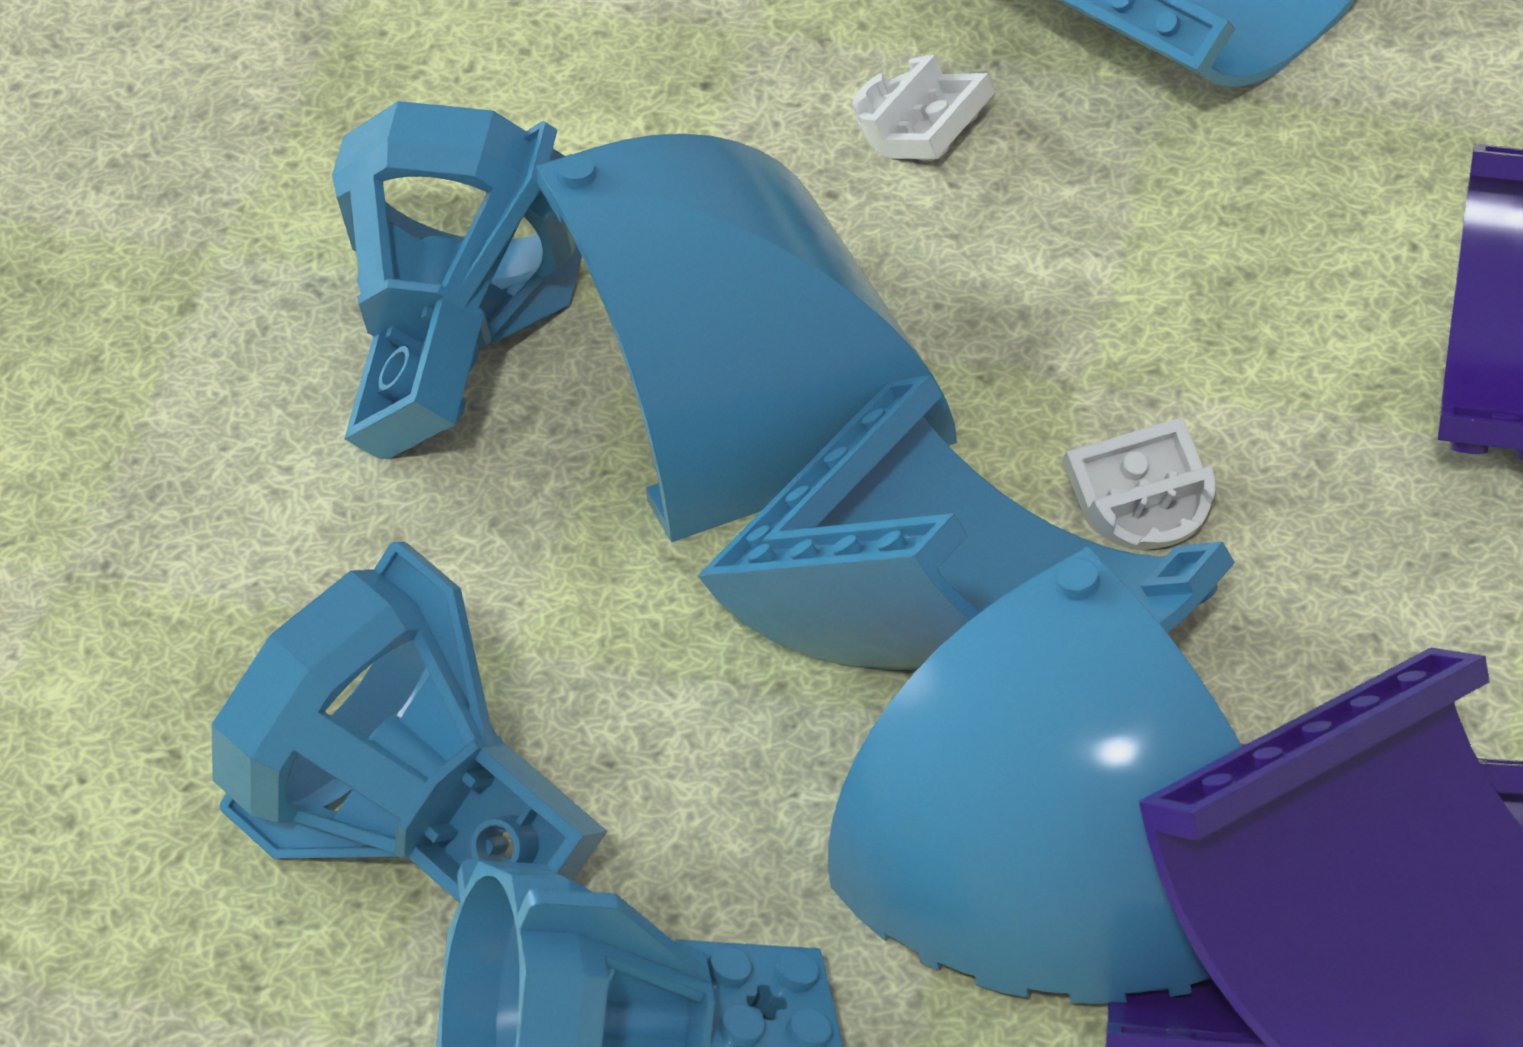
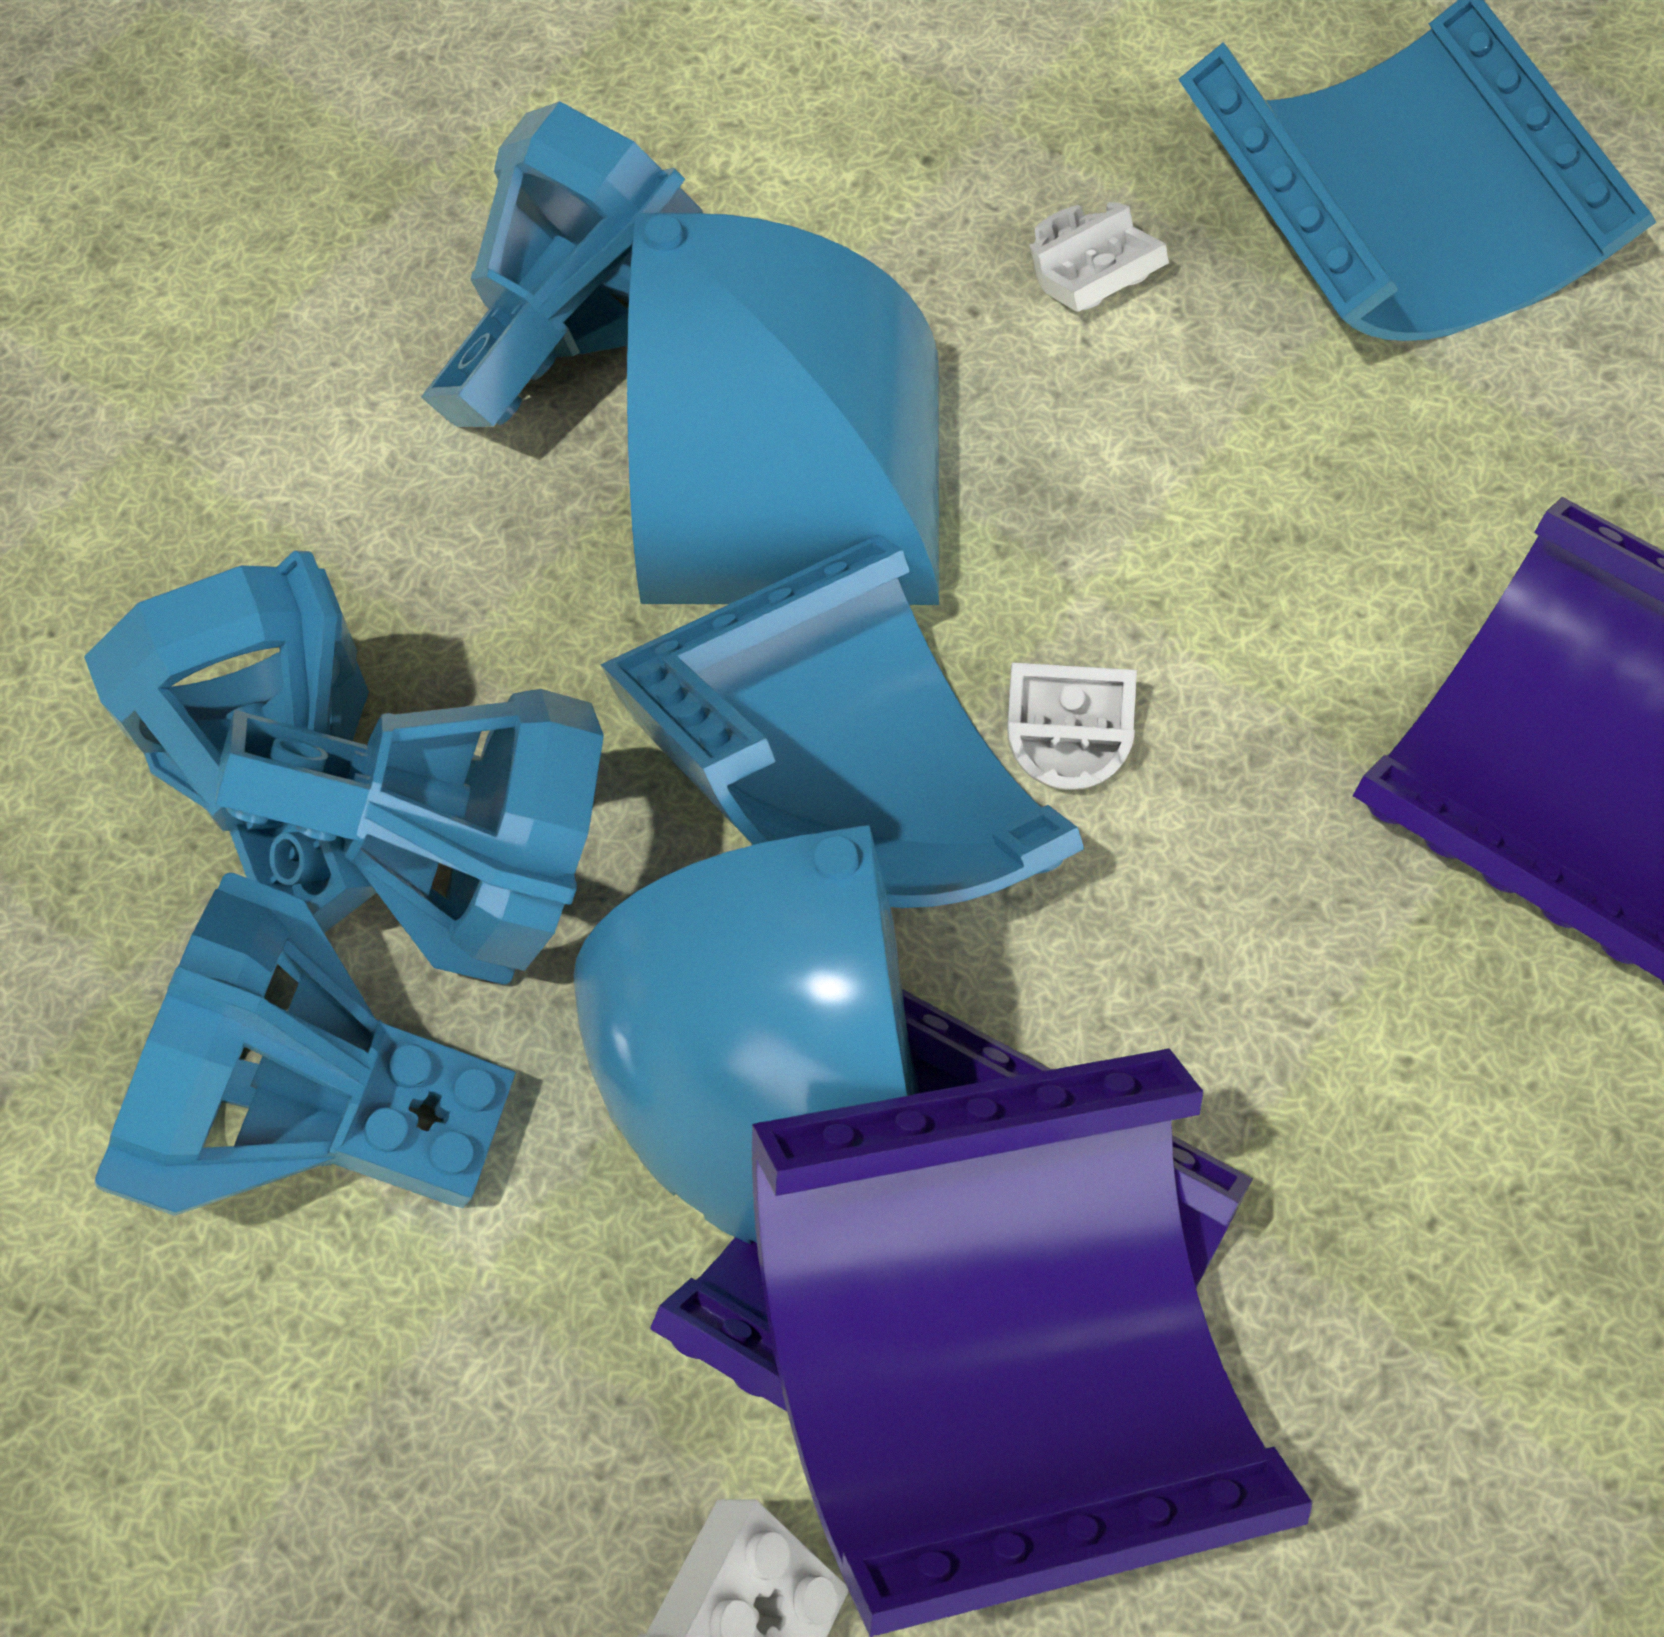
camera: 25 degrees right, 15 degrees up
(625, 730) = (423, 799): none -> dark azure plate

